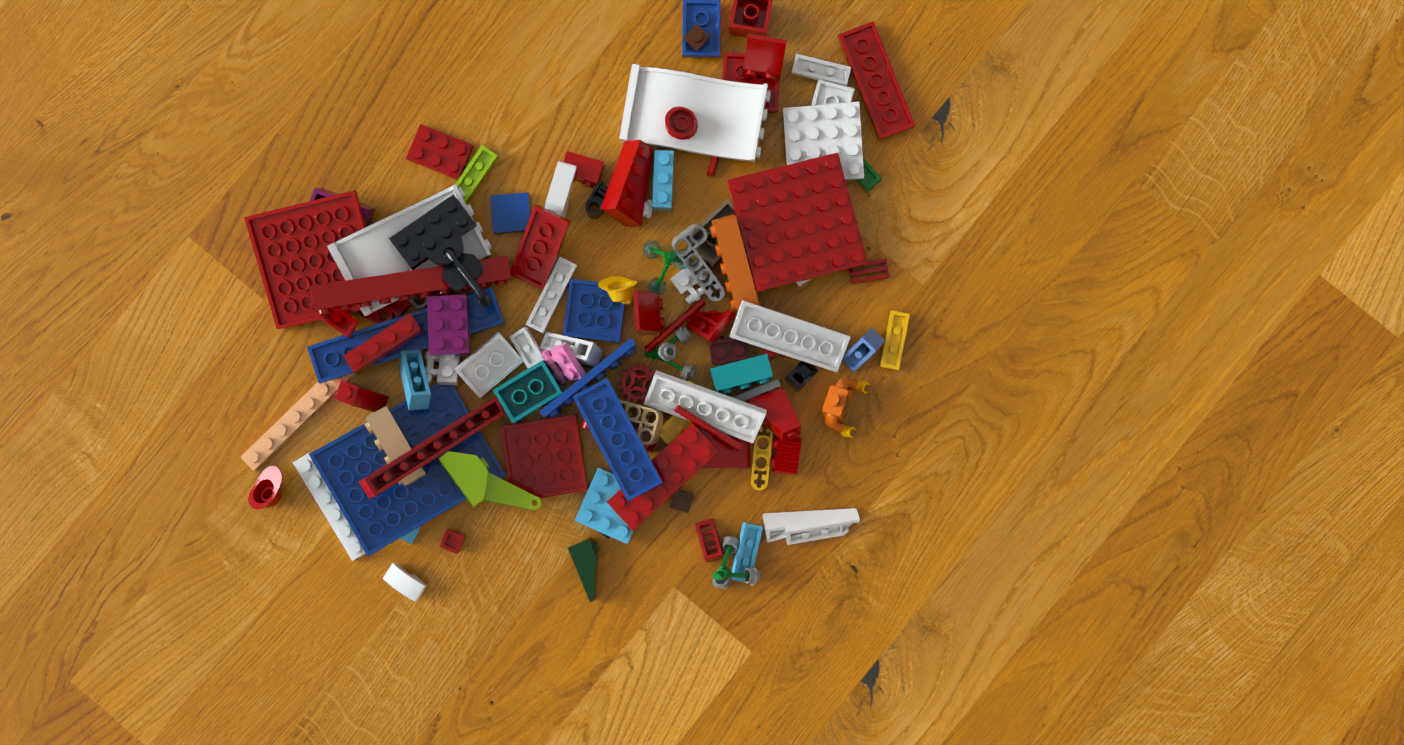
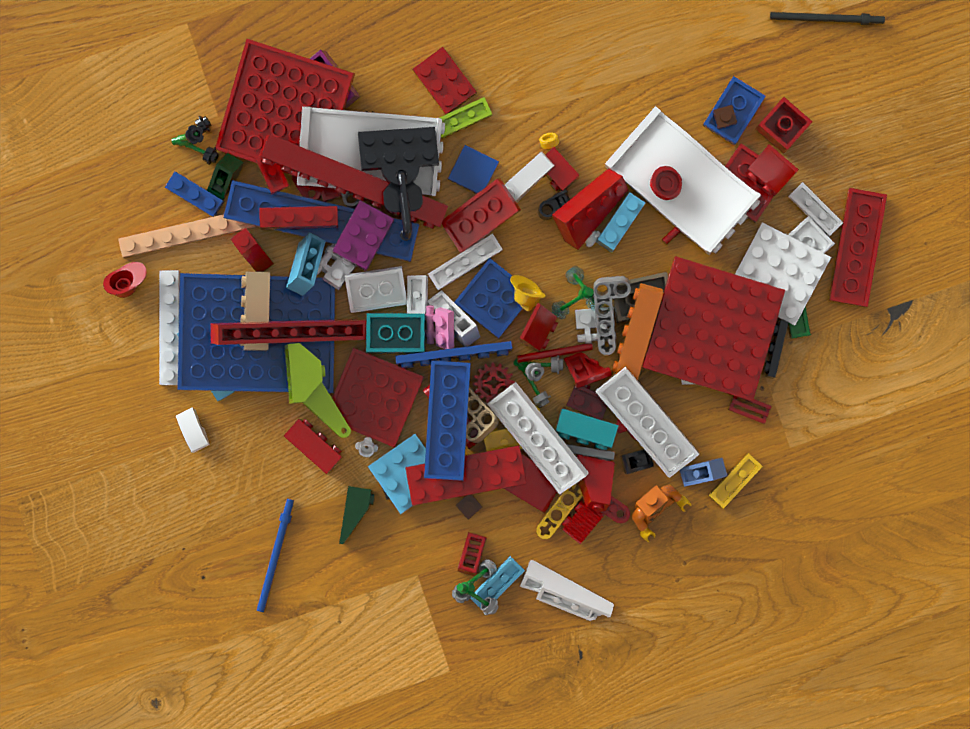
camera: 35 degrees right, 0 degrees up
(249, 327) = (195, 134): none -> black plant
(283, 378) = (194, 194): none -> blue plate
(296, 343) = (225, 171): none -> dark green slope
(452, 541) = (254, 420): red plate -> none
(517, 531) = (314, 445): none -> red brick
(531, 609) = (285, 518): none -> blue bar
(560, 148) = (549, 140): none -> yellow tile
(563, 509) = (366, 452): none -> white plate
(707, 427) = (529, 456): red bar -> none
(806, 424) = (614, 506): none -> red plate
(860, 209) = (775, 349): none -> black plate

